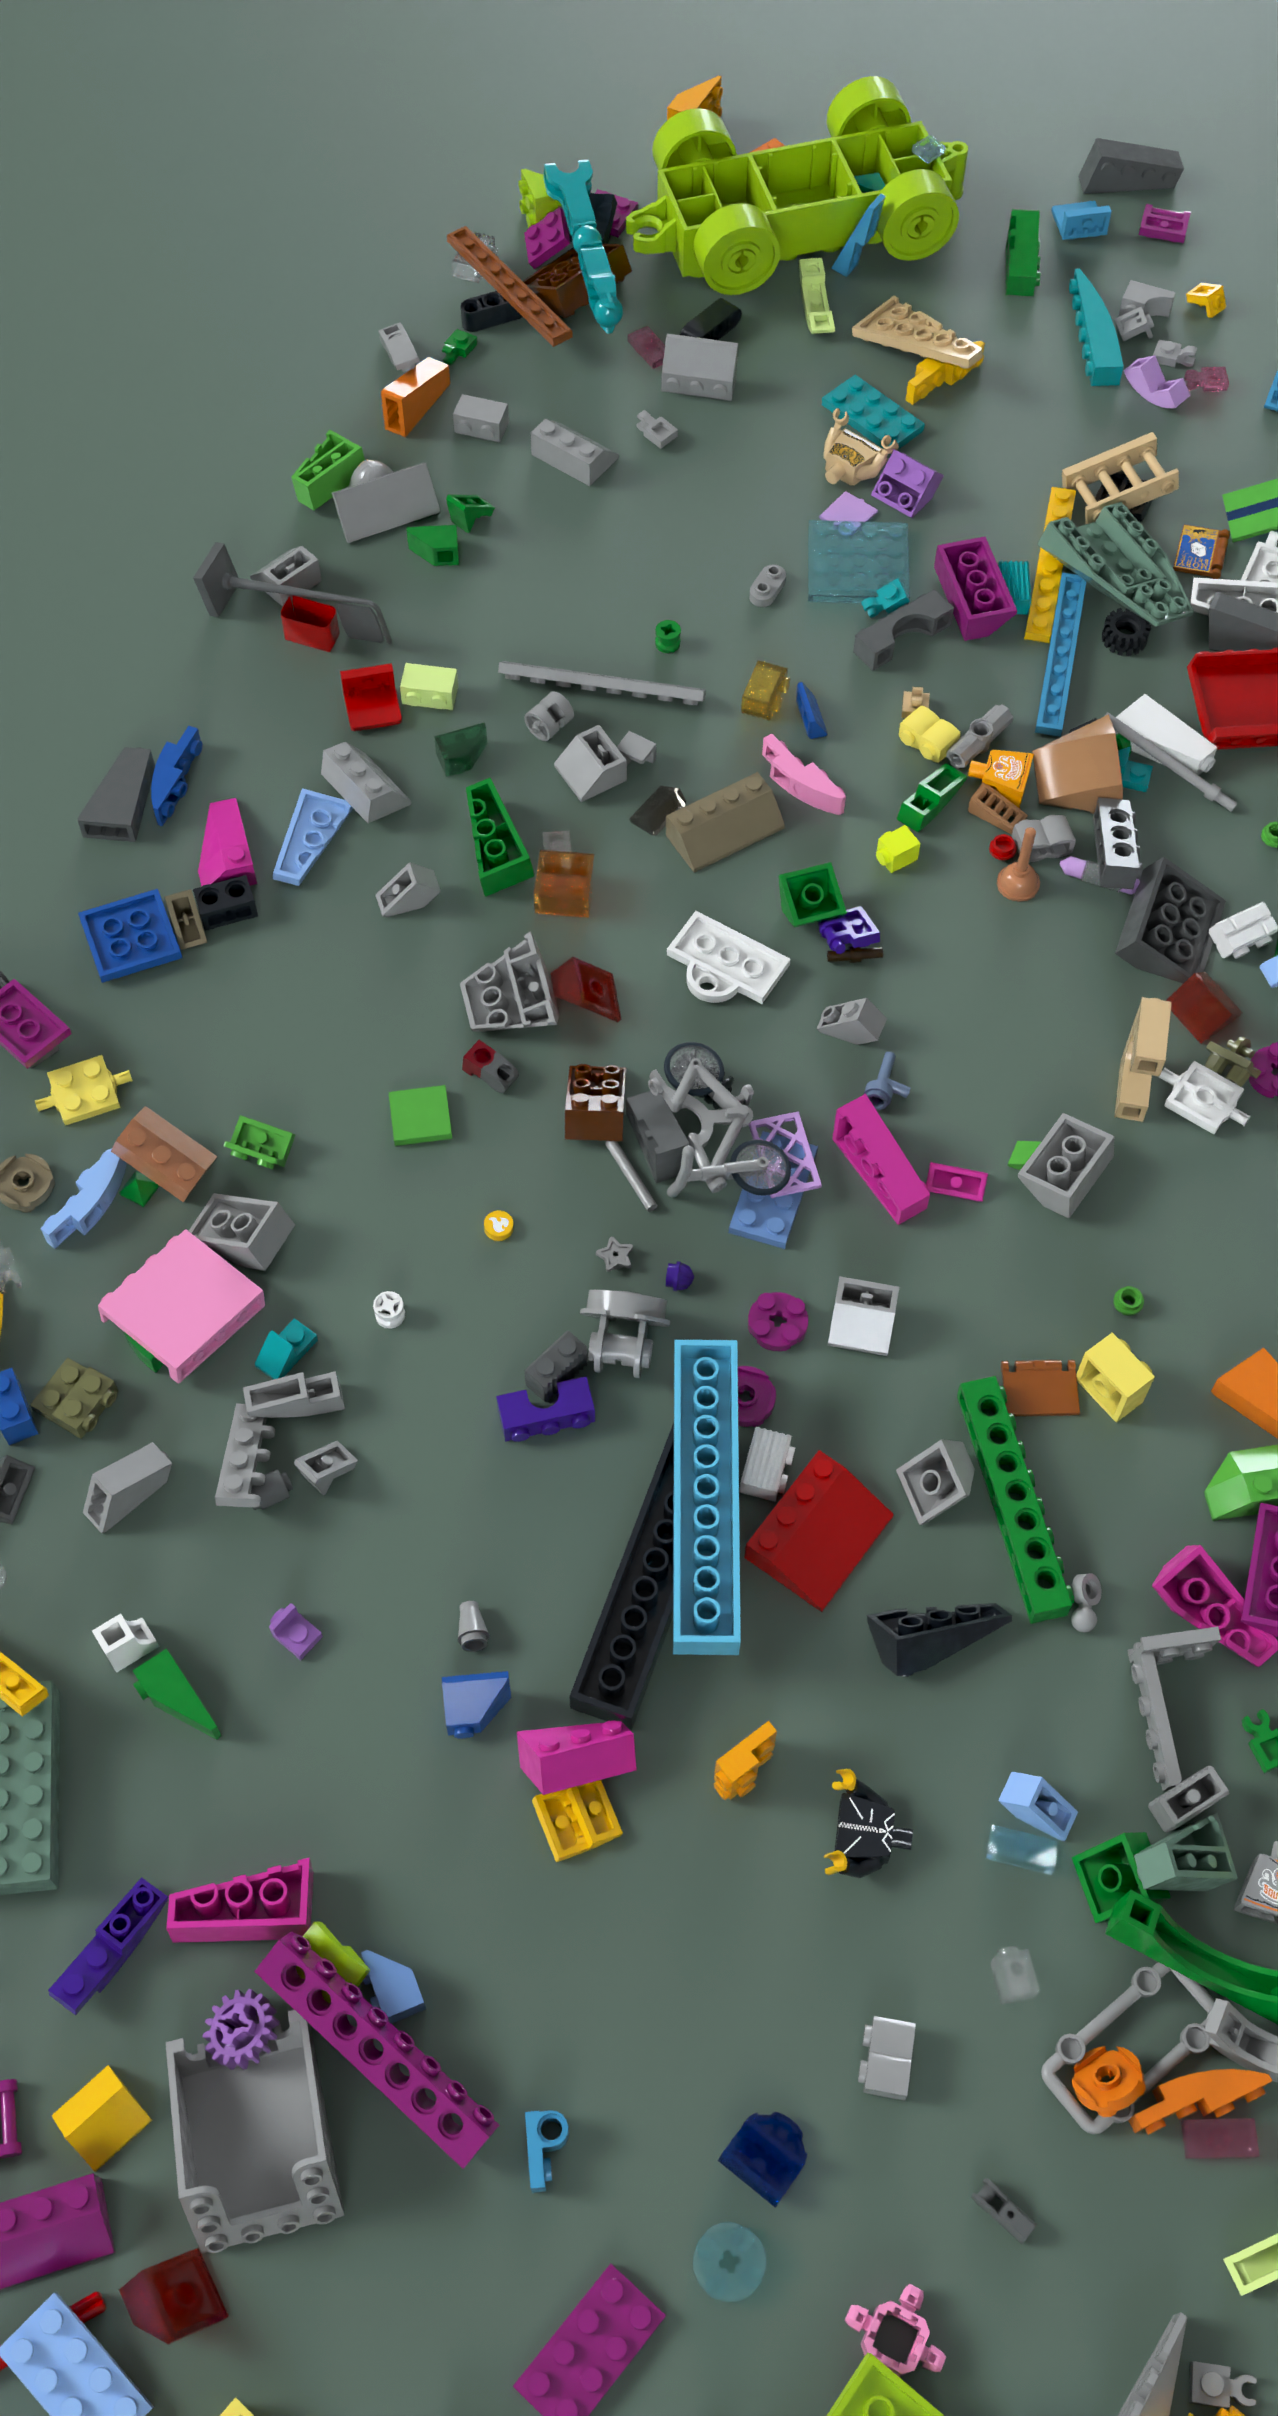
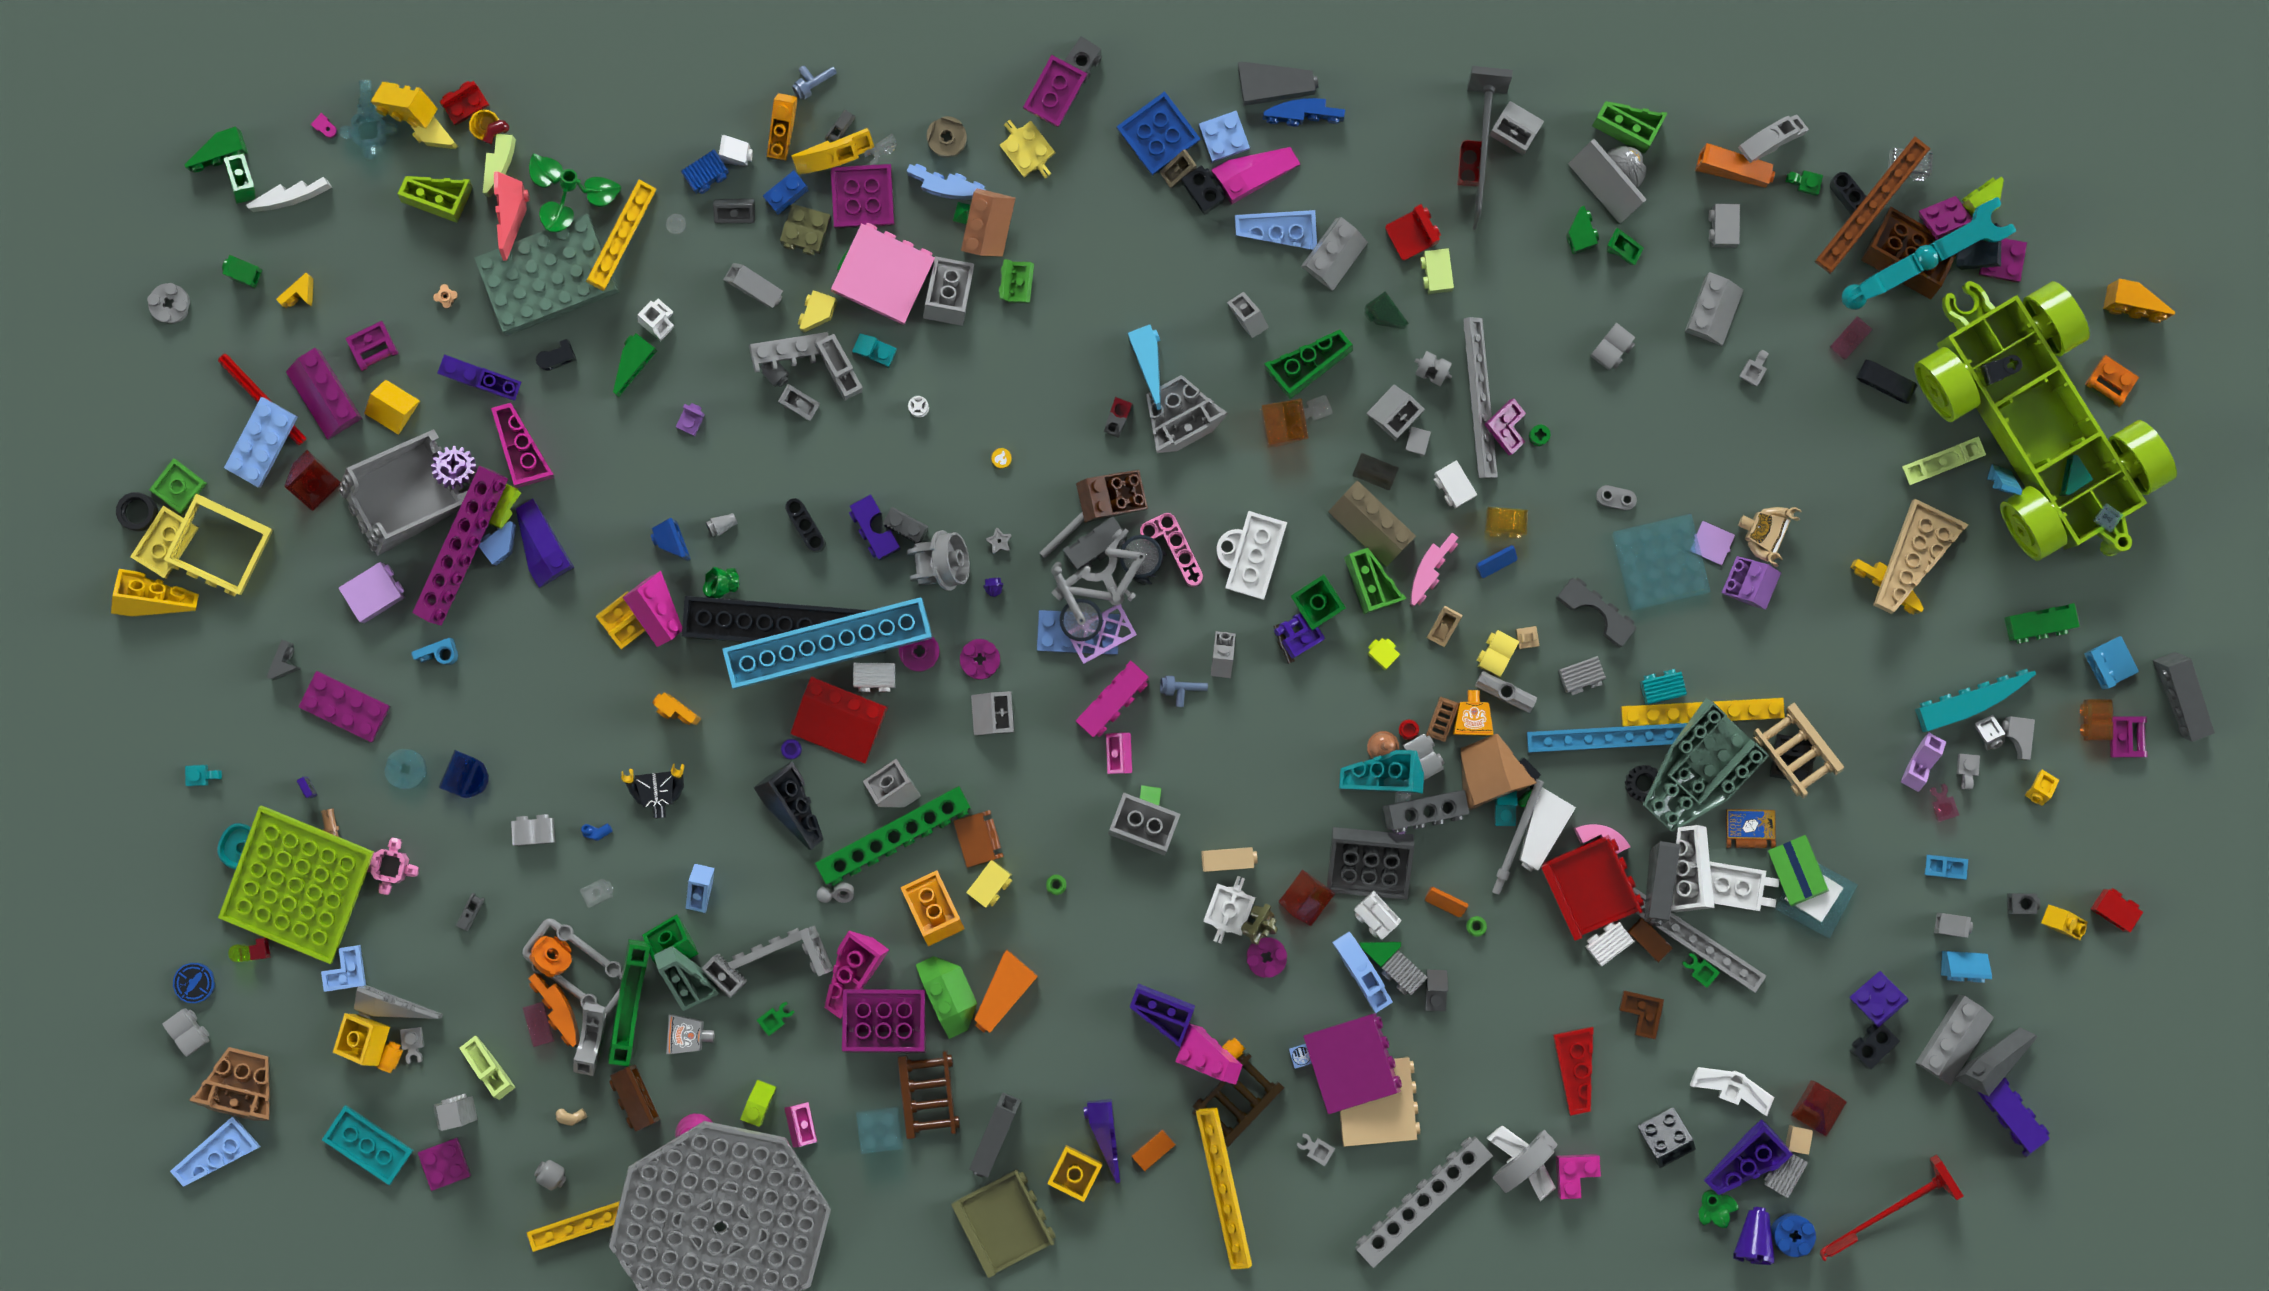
camera: 75 degrees right, 25 degrees up
(58, 1308) = (862, 195): none -> magenta plate
(124, 1819) = (556, 357): none -> black leg
(165, 867) = (1224, 136): none -> light blue plate
(200, 1406) = (818, 311): none -> light yellow slope
(405, 2237) = (372, 592): none -> lavender brick
(420, 1011) = (1147, 353): none -> medium azure slope
(420, 1115) = (1070, 380): bright green tile -> none
(422, 1917) = (542, 549): none -> dark purple wedge
(523, 1492) = (798, 518): none -> black beam
(561, 1647) = (720, 582): none -> green hair
(585, 545) = (1613, 346): none -> light grey brick
(586, 987) = (1197, 465): clear red slope -> none
(647, 666) = (1502, 426): none -> plate
(699, 367) = (1824, 386): light grey slope -> none
(702, 728) = (1455, 485): none -> white brick
(728, 1033) = (1176, 551): none -> bright pink beam
(737, 187) = (1998, 369): none -> black piece
(801, 837) = (1371, 582): none -> bright green wedge
(846, 1614) = (791, 749): none -> dark purple tile
(873, 412) = (1826, 537): teal plate -> none
(876, 770) = (1444, 626): none -> tan slope
(889, 599) = (1621, 595): teal plate -> none
(914, 1953) = (596, 833): none -> blue arm
(931, 797) = (1440, 668): green slope -> none
(974, 587) = (1650, 658): magenta slope -> none
(977, 659) = (1581, 675): none -> light grey brick
(1021, 1849) = (673, 884): clear light blue slope -> none
(1059, 866) = (1393, 772): none -> teal wedge
(1134, 1469) = (932, 908): none -> light orange slope
(1141, 239) = (2097, 720): none -> clear orange brick
(1178, 690) = (1588, 832): none -> bright pink brick
(1237, 857) = (1446, 902): none -> orange slope

